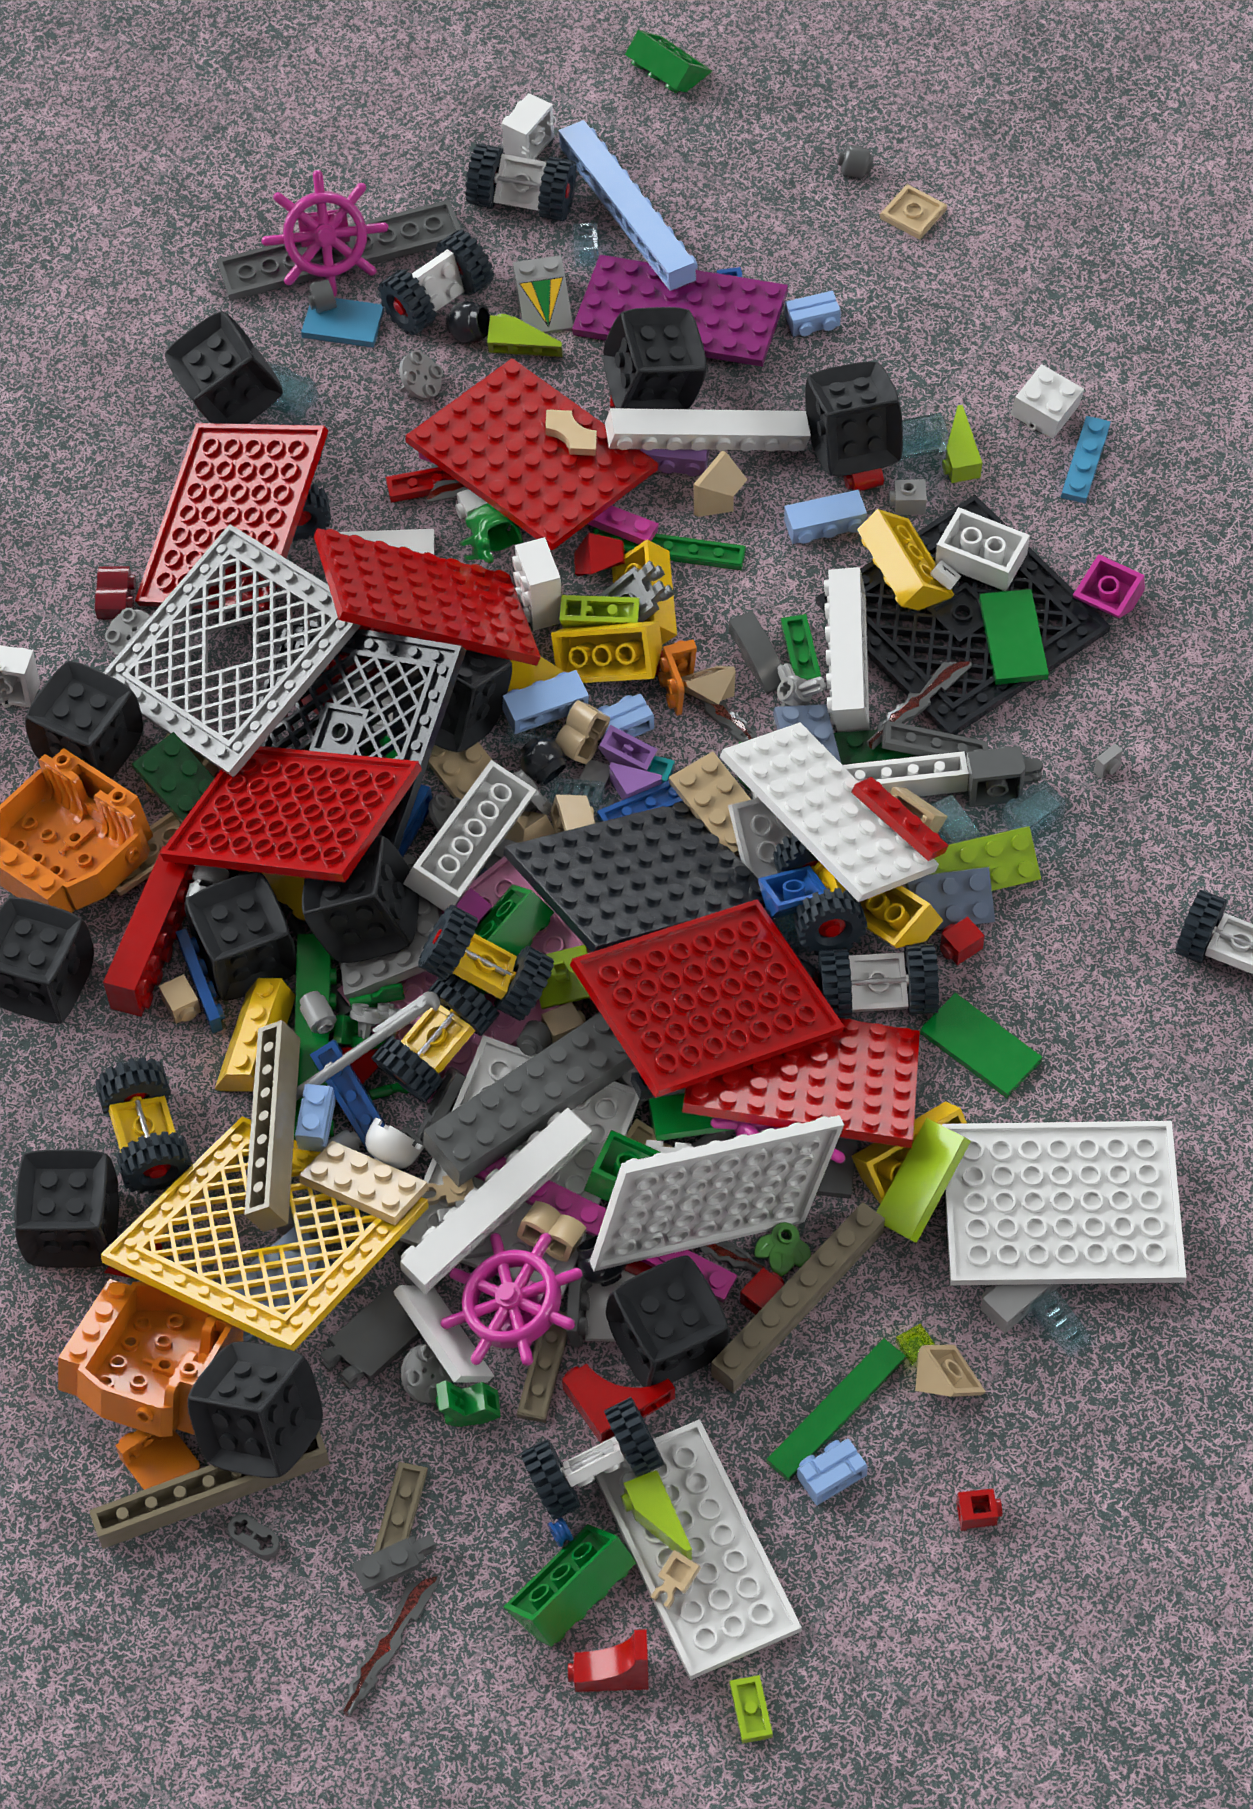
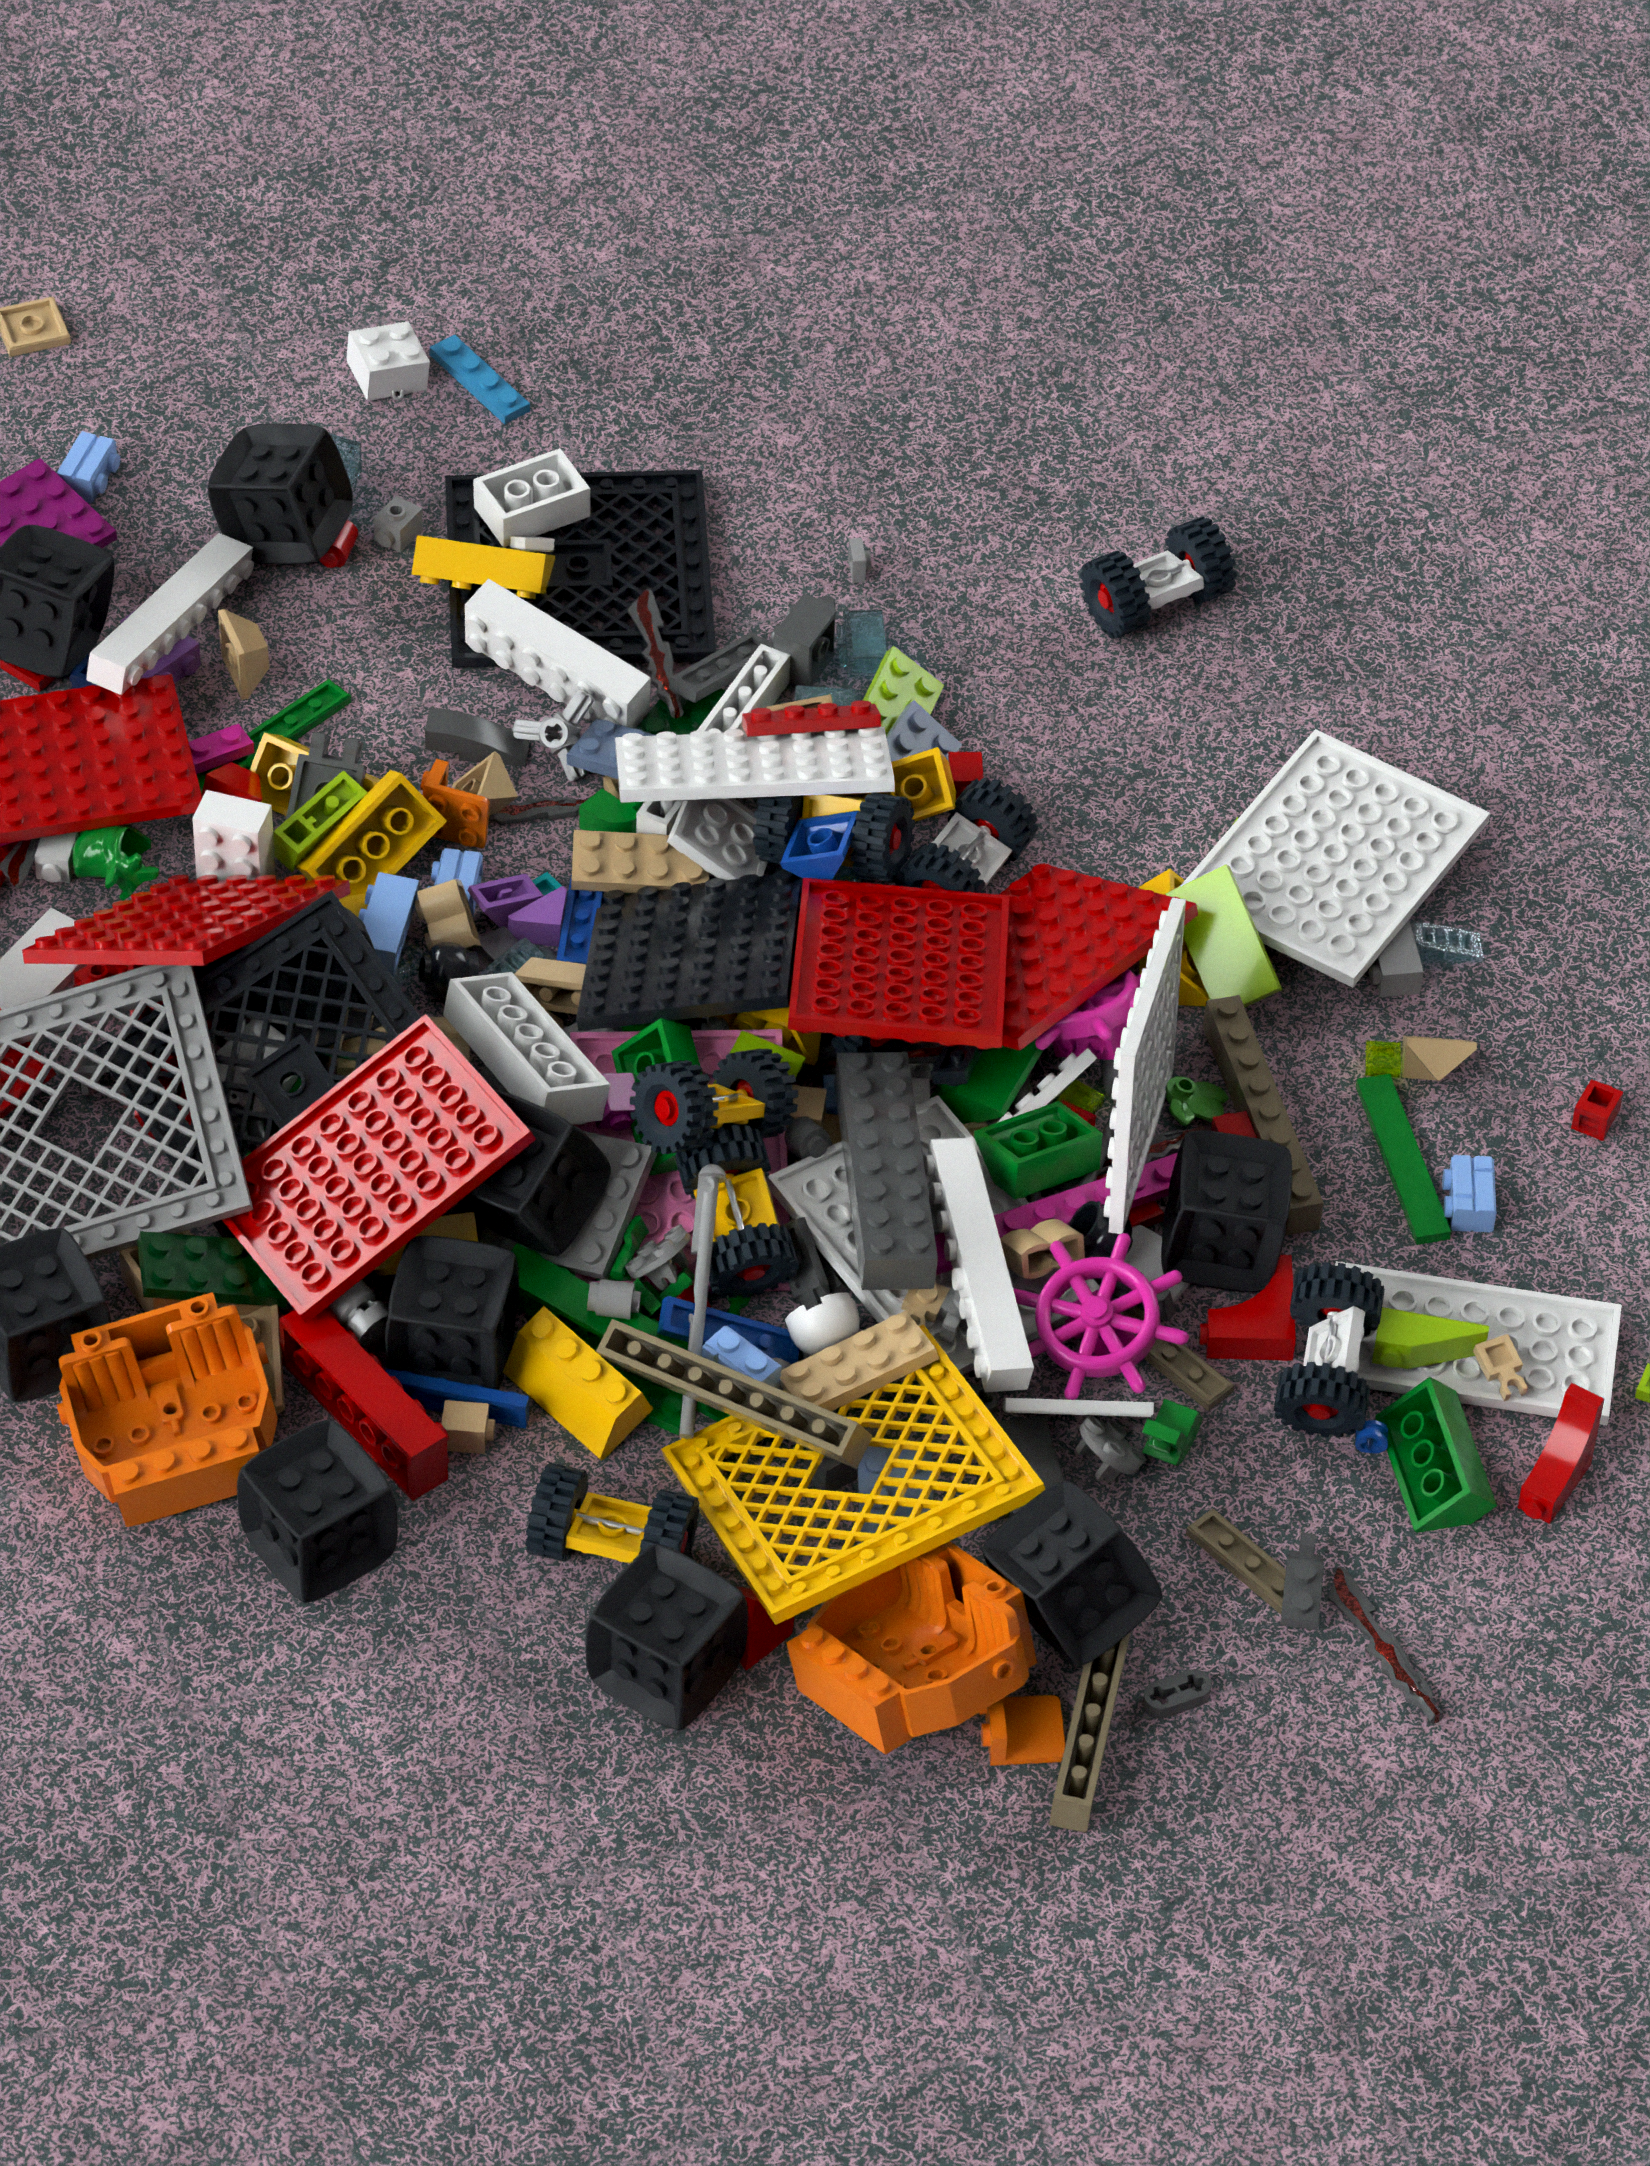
camera: 60 degrees left, 10 degrees down
(564, 427) = (82, 711): tan tile -> none
(800, 646) = (497, 704): green plate -> none
(824, 517) = (358, 598): light blue brick -> none
(962, 454) = (384, 457): lime slope -> none
(981, 1045) = (1096, 833): green tile -> none
(1013, 636) = (649, 540): green tile -> none
(1111, 587) = (661, 438): dark pink slope -> none

